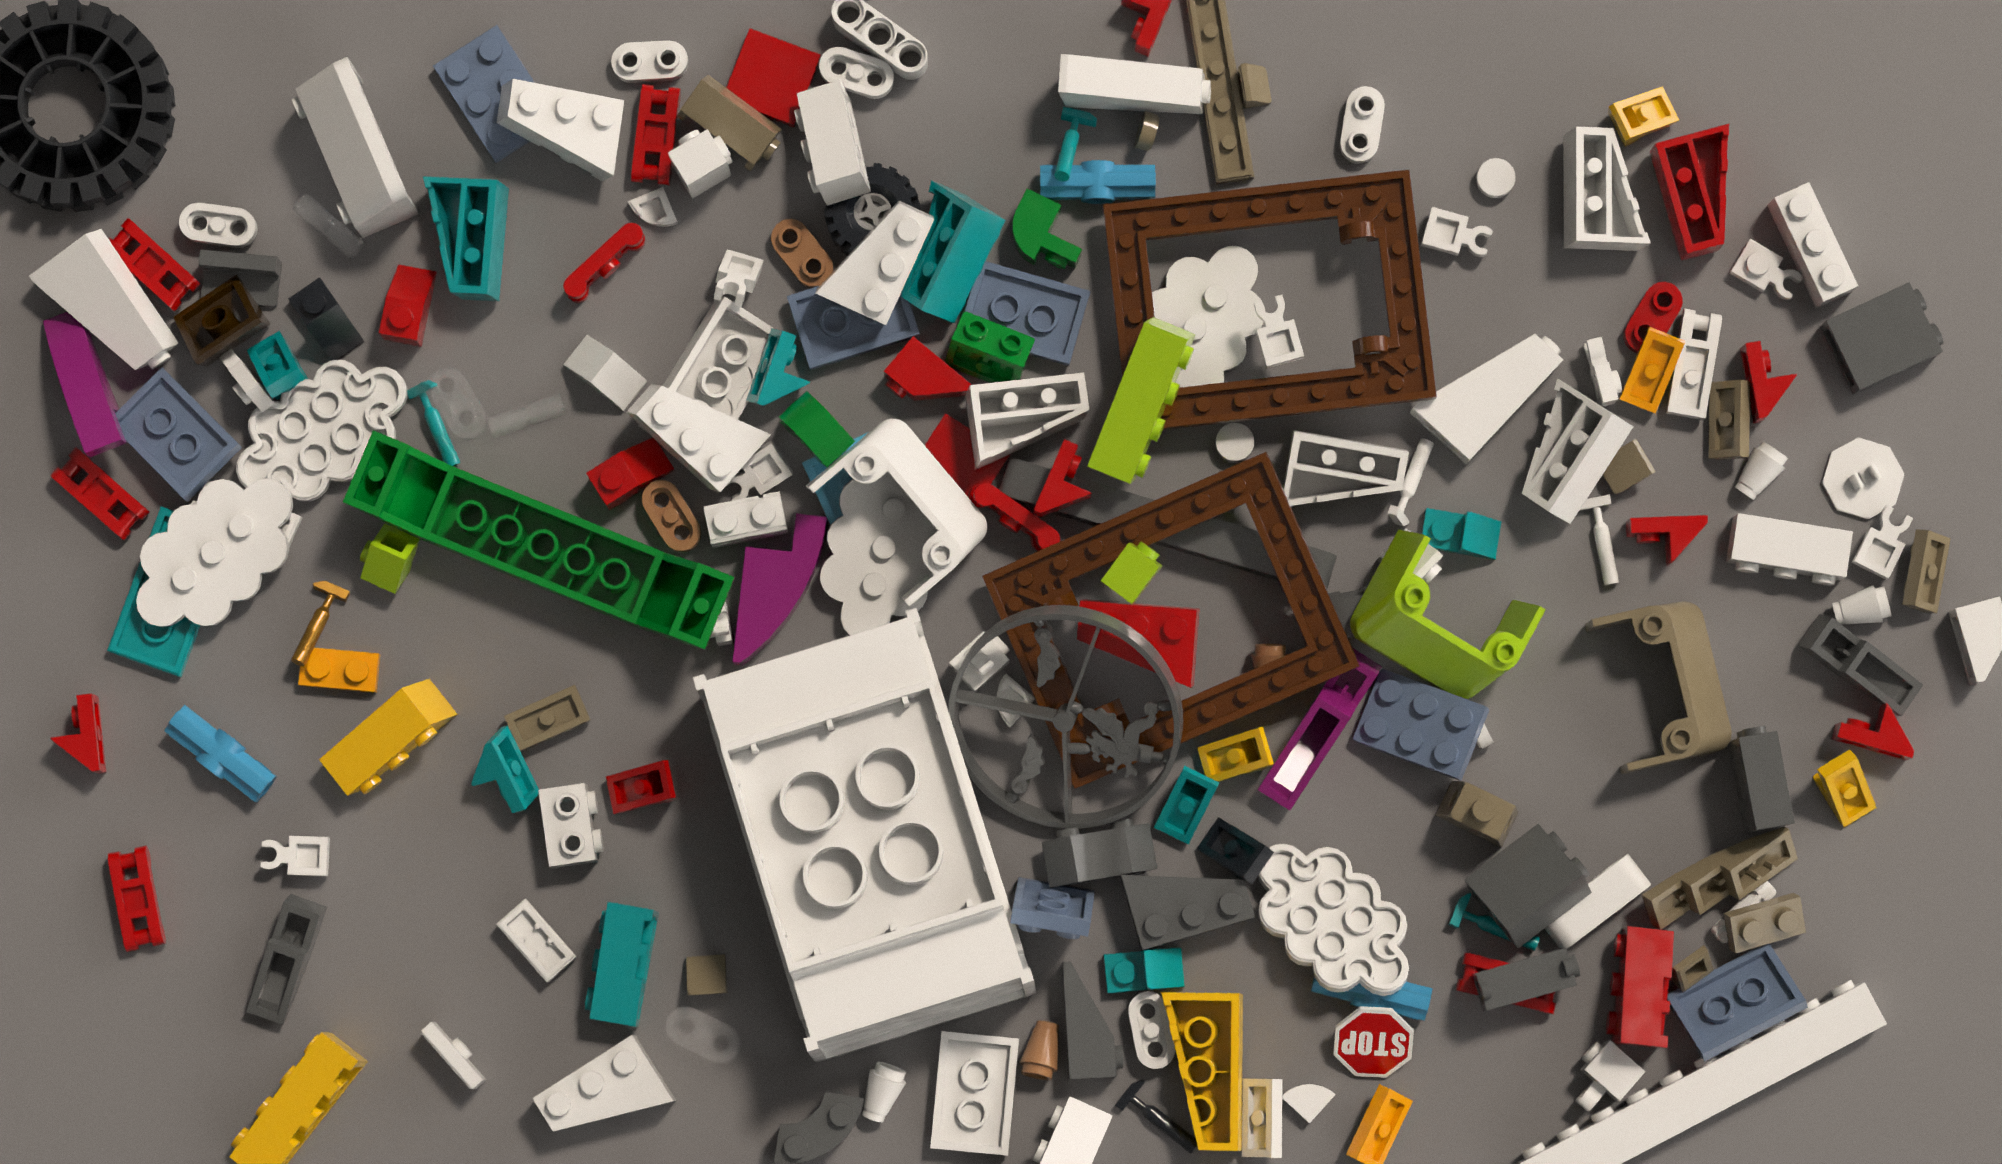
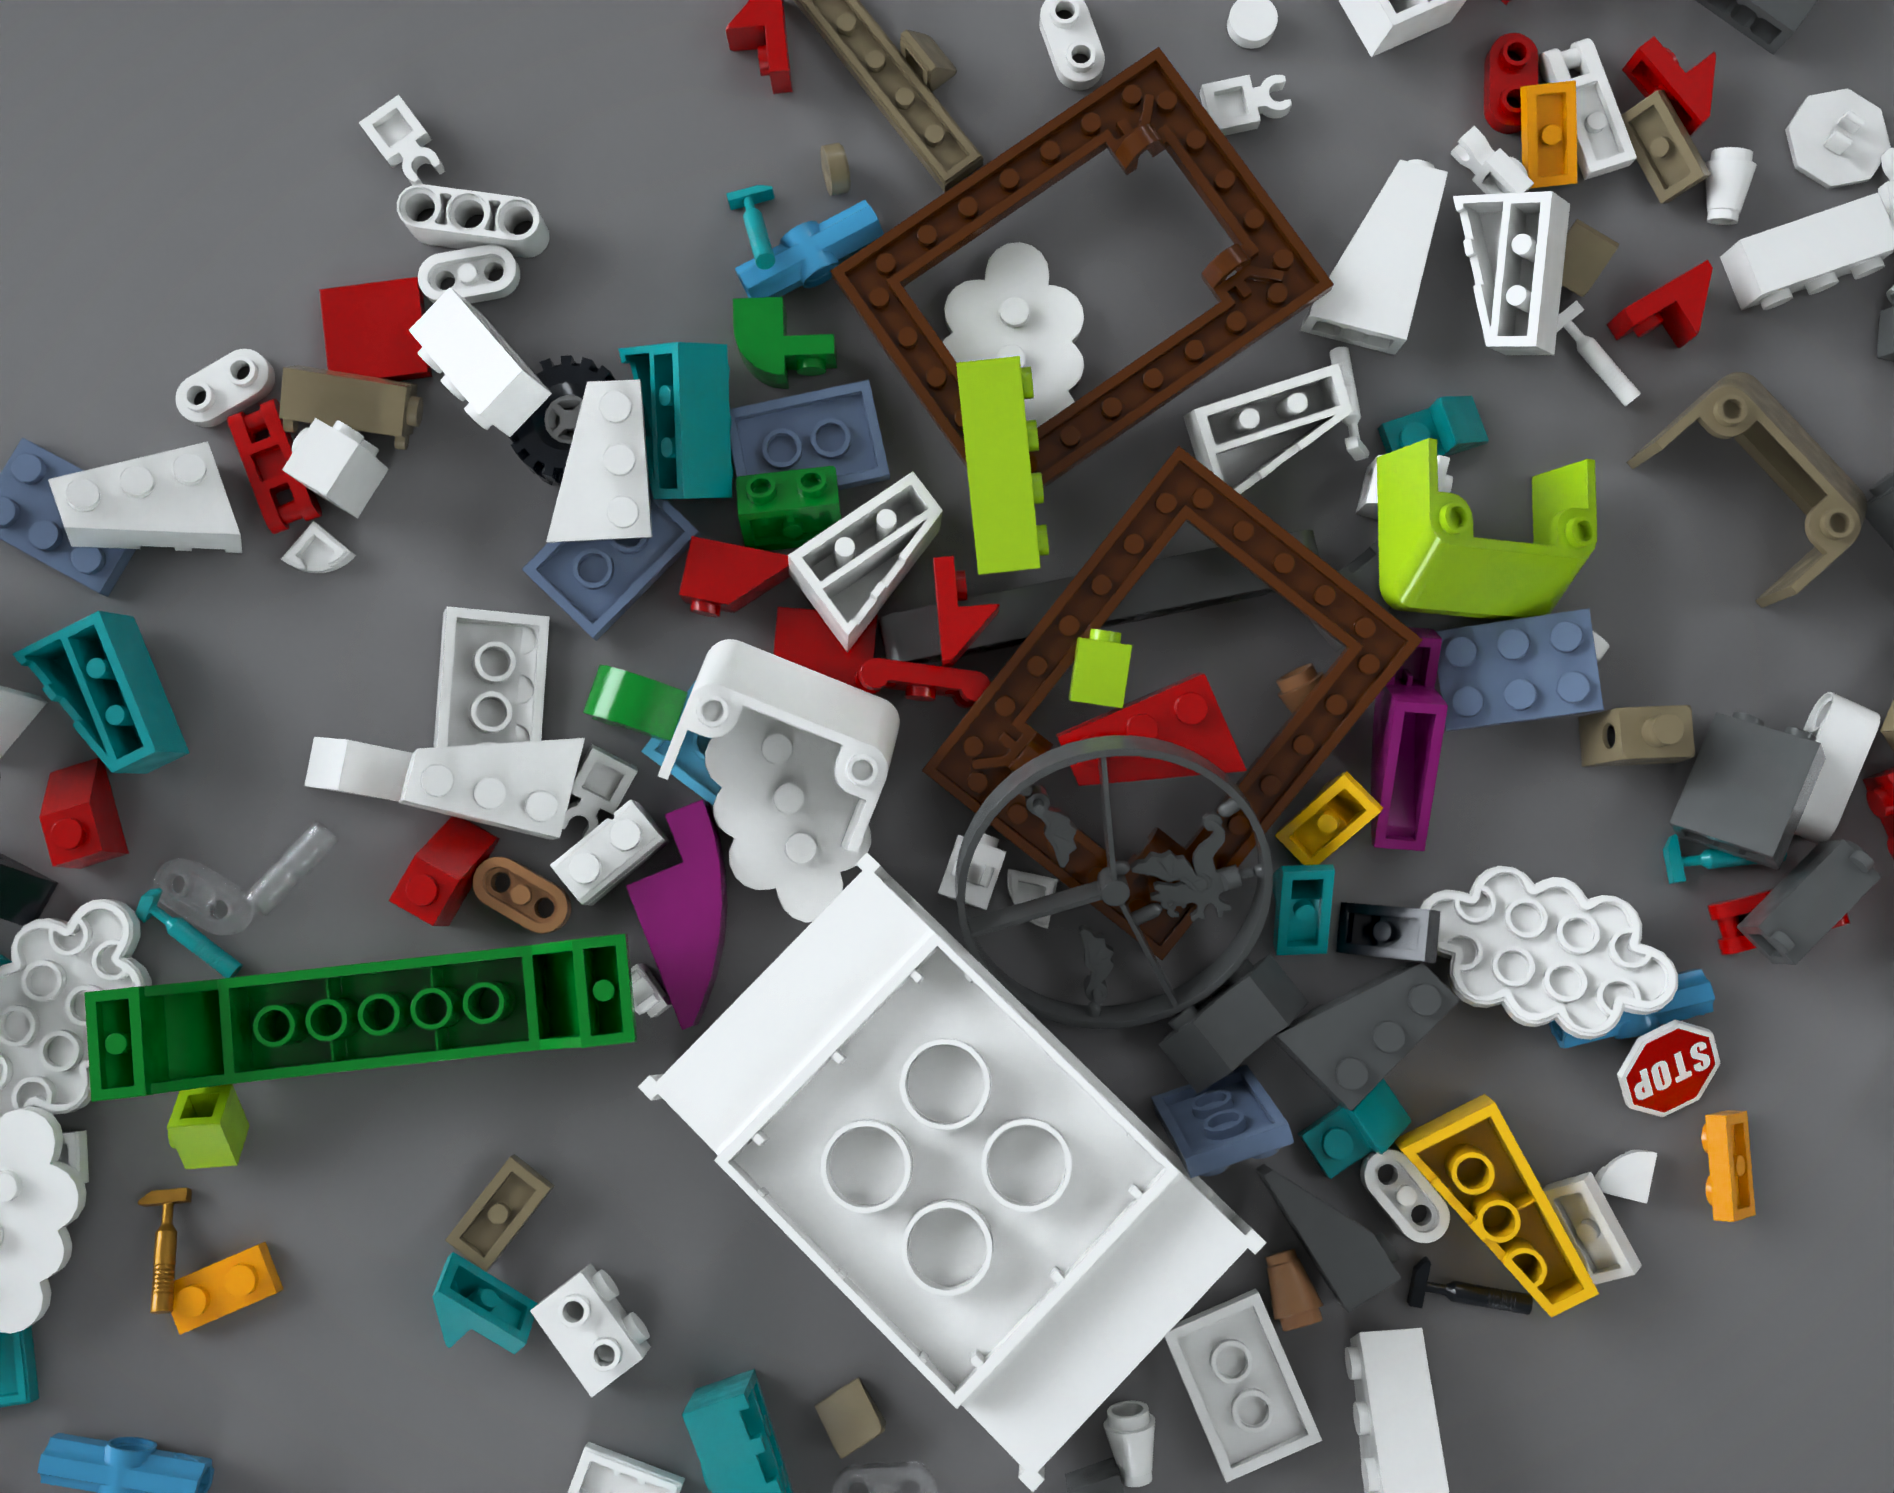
camera: 30 degrees left, 0 degrees up
(387, 737) = (317, 1341): yellow wedge -> none
(603, 261) = (286, 642): red plate -> none
(641, 787) = (654, 1237): red slope -> none
(737, 276) = (450, 576): white plate -> none
(770, 379) = (552, 674): teal slope -> none
(801, 253) = (512, 511): medium nougat plate -> none
(1131, 85) = (788, 121): white slope -> none
(1234, 442) = (1124, 465): white tile -> none
(1279, 338) = (1118, 310): white plate -> none

